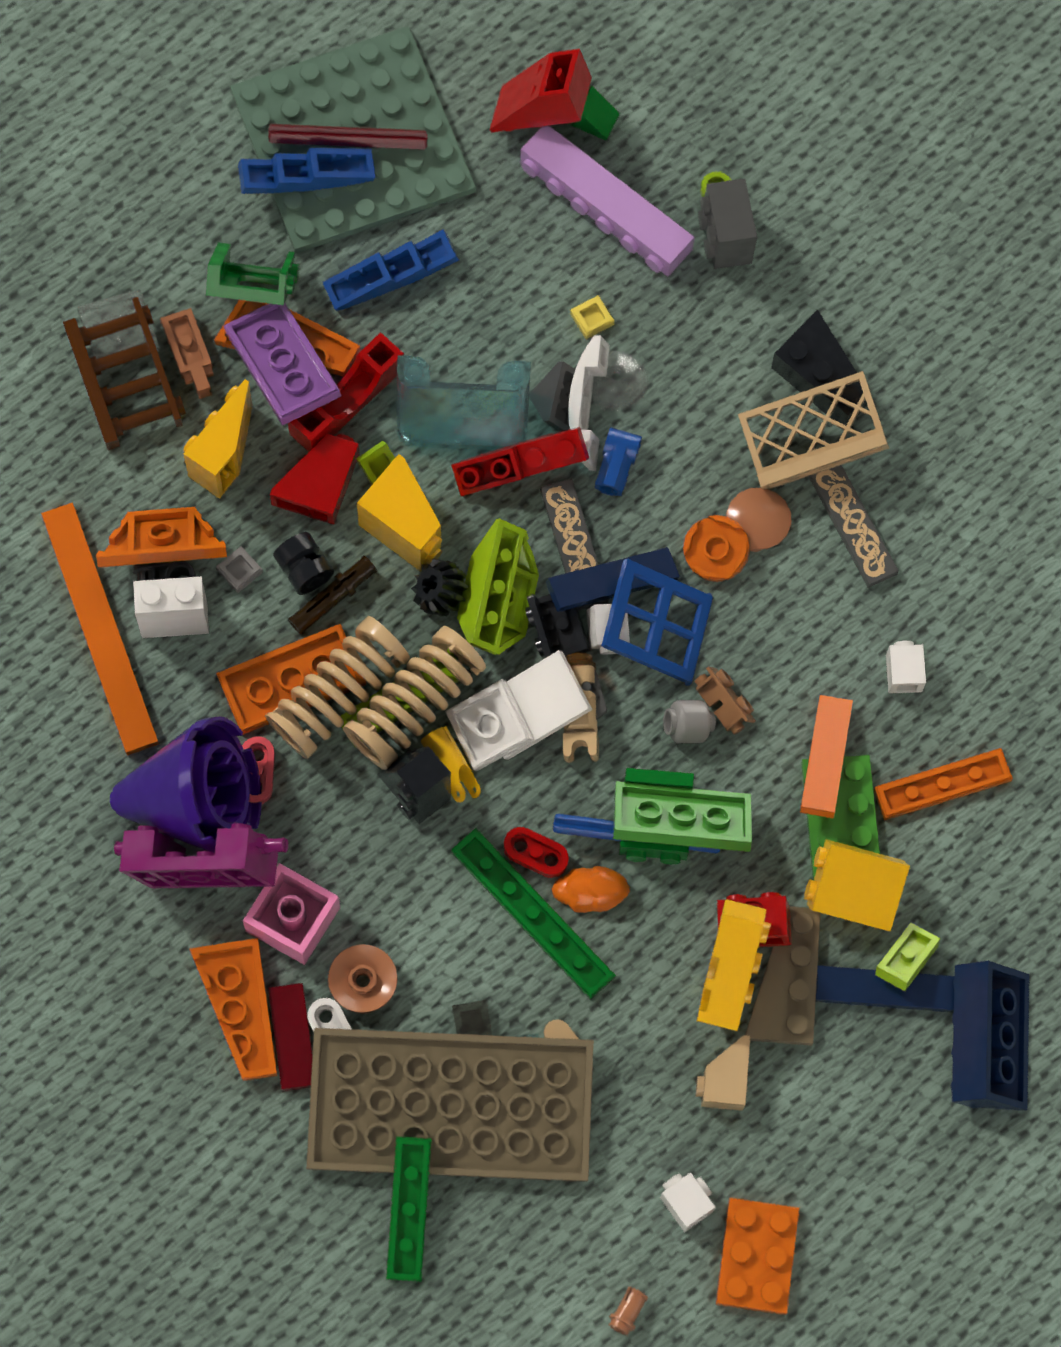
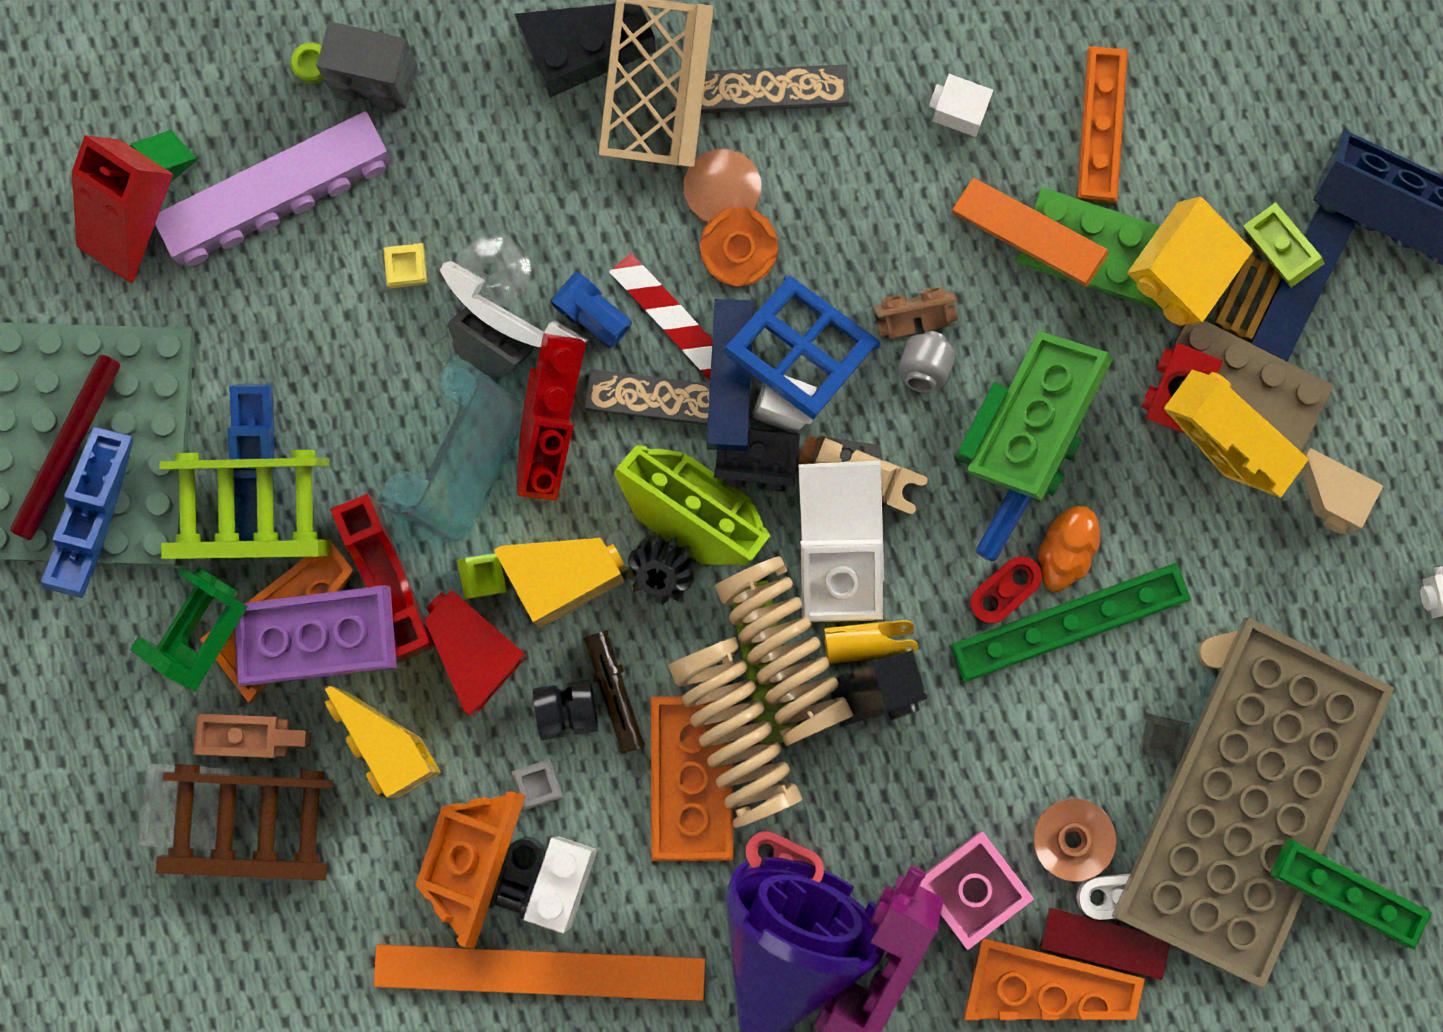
camera: 60 degrees left, 10 degrees up
(339, 299) = (265, 541): none -> lime fence
(643, 513) = (665, 311): none -> sticker
(854, 950) = (1263, 267): none -> pearl gold tile

